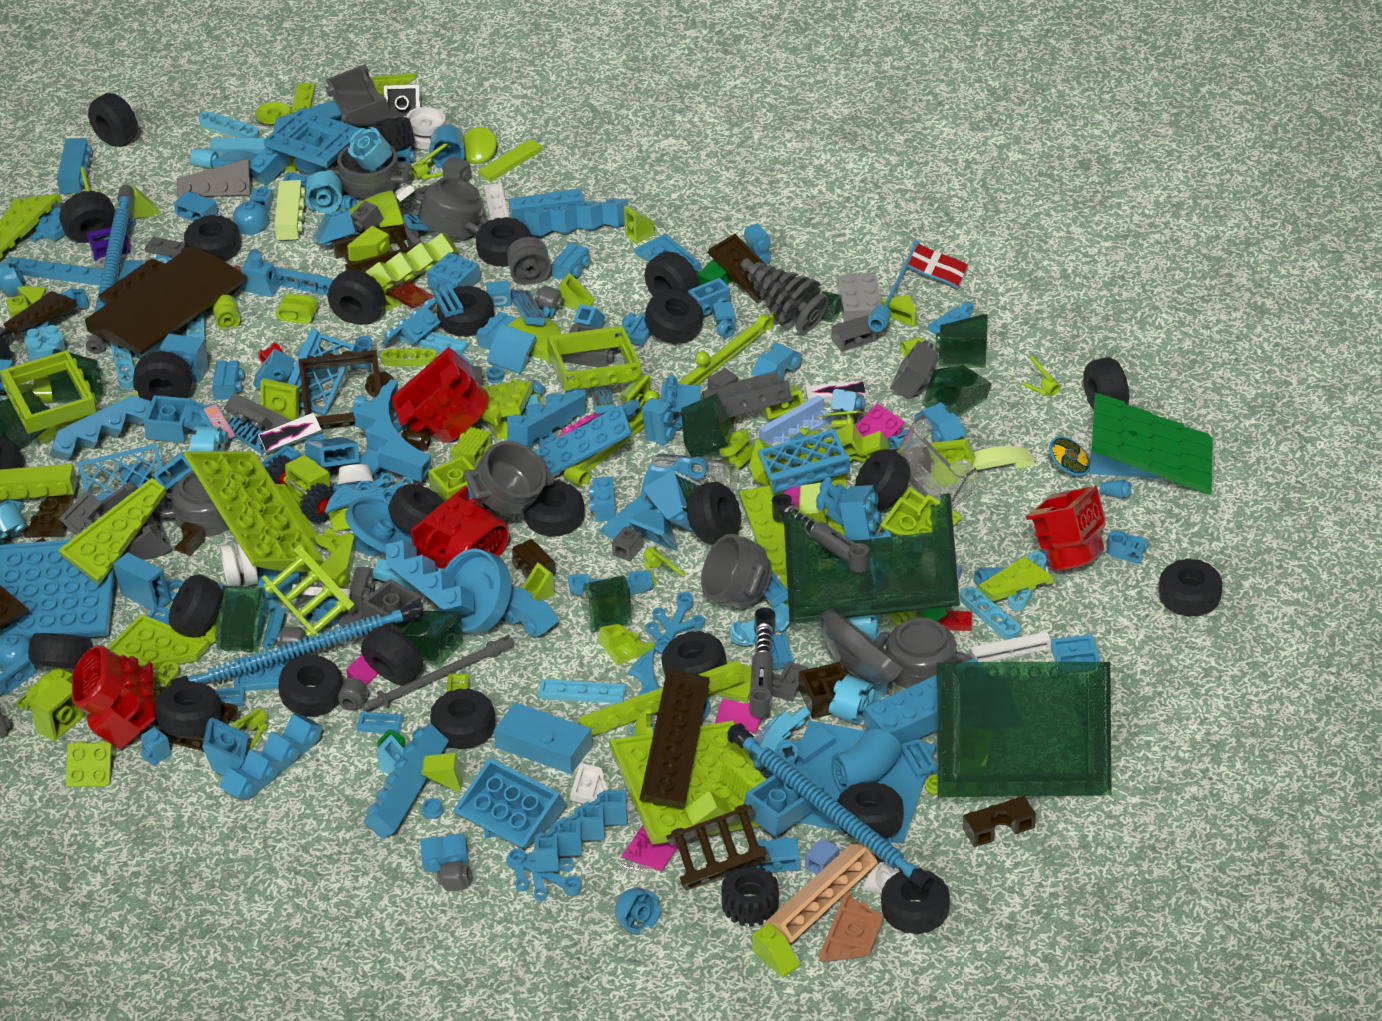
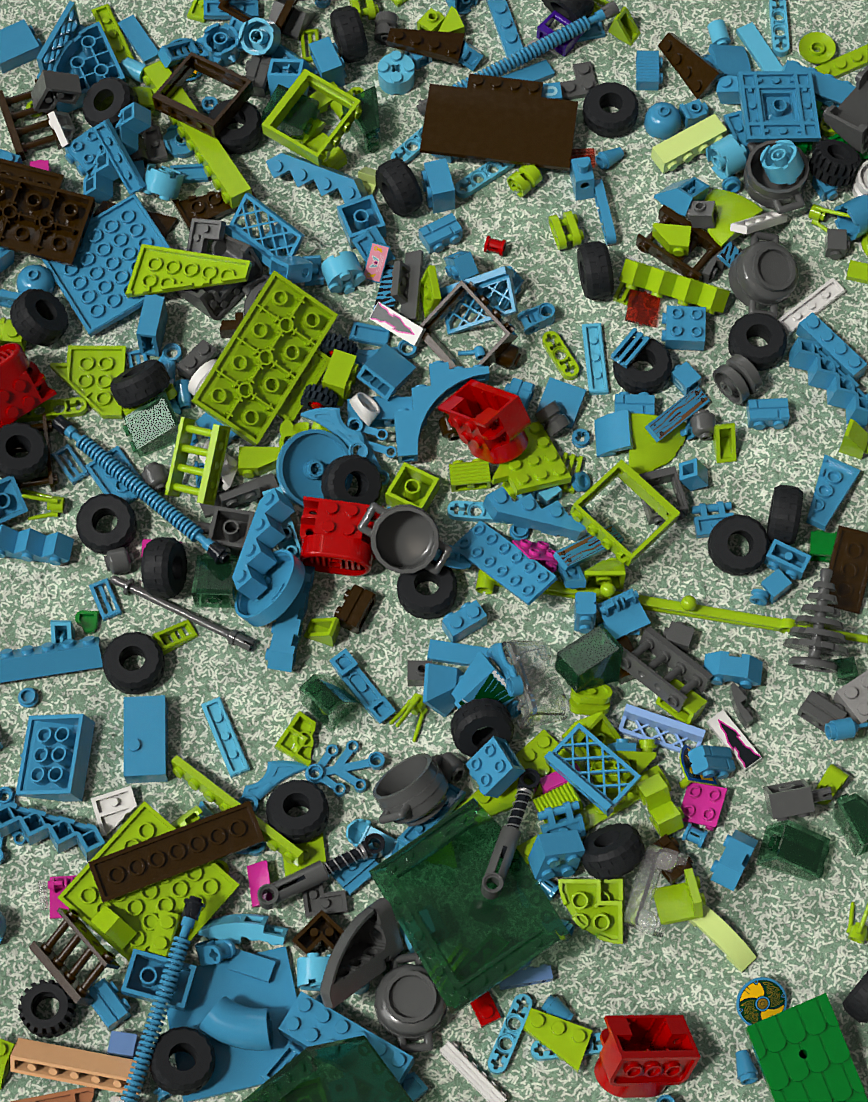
camera: 60 degrees right, 25 degrees up
(202, 564) = (196, 358): none -> dark grey brick
(273, 627) = (160, 455): dark azure tile -> none
(417, 326) = (596, 340): dark azure bracket -> none
(444, 770) = (63, 683): lime slope -> none
(756, 516) = (495, 767): none -> dark azure brick
(805, 374) = (738, 700): none -> dark grey slope

